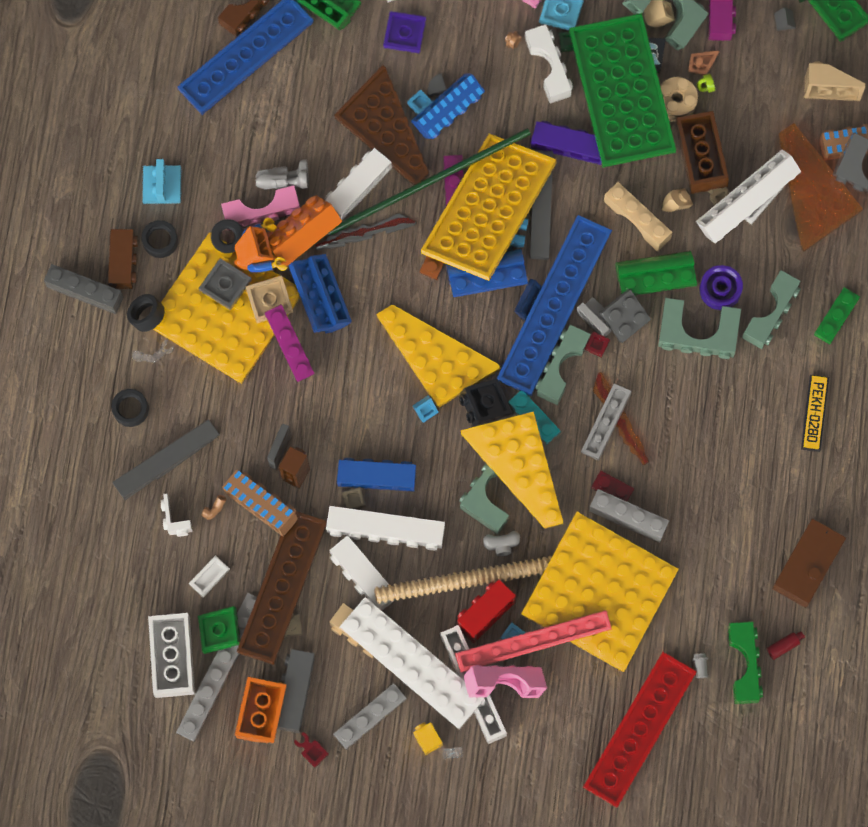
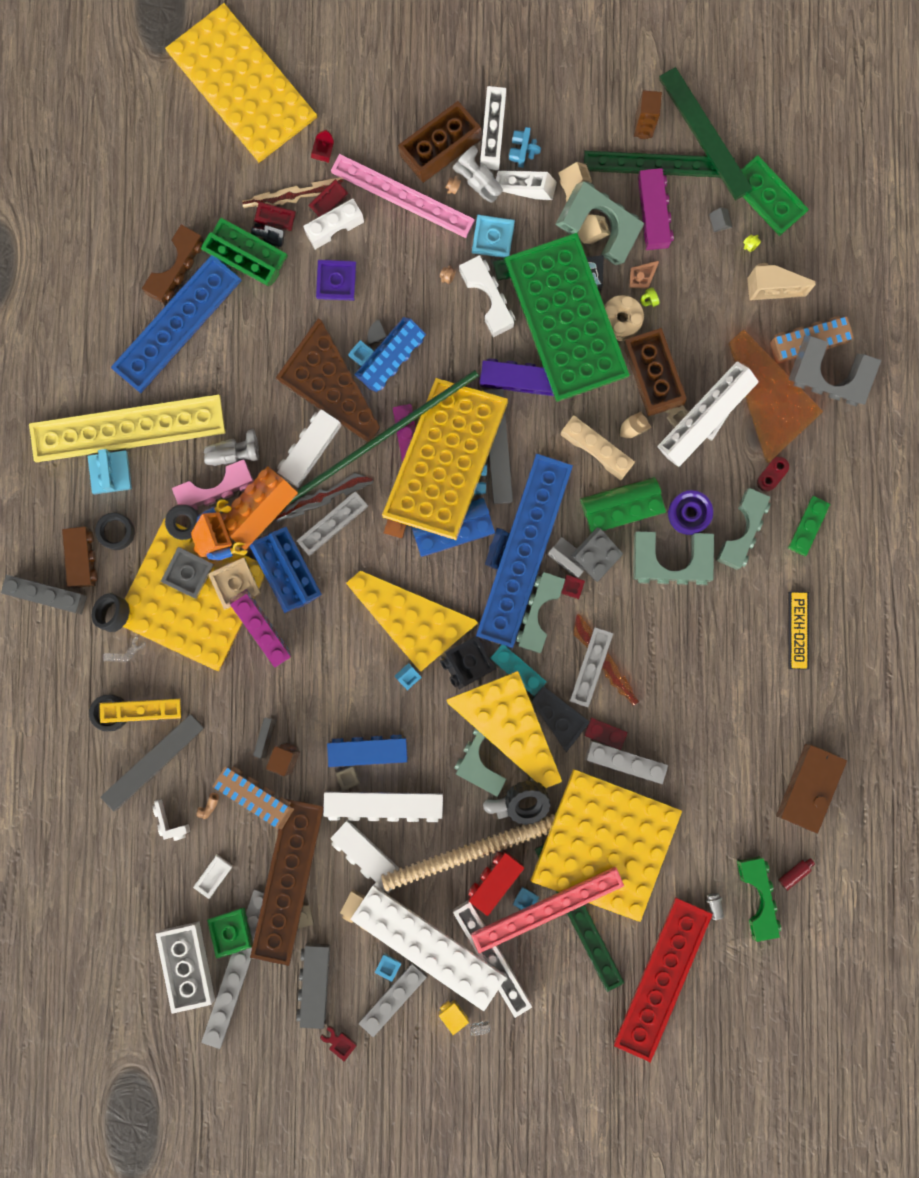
camera: 10 degrees left, 10 degrees up
(161, 407) = (140, 710): none -> yellow plate
(185, 145) = (127, 428): none -> light yellow plate
(260, 710) = (282, 1013): orange slope -> none
(369, 683) = (388, 967): none -> dark azure plate
(370, 257) = (332, 523): none -> light grey plate
(526, 552) = (531, 814): none -> black tyre
(526, 680) = (545, 949): bright pink arch -> none
(569, 466) = (560, 717): none -> black wing
(574, 687) = (593, 945): none -> dark green tile
(808, 262) = (773, 474): none -> dark red plate
(812, 44) = (752, 242): none -> neon yellow plate

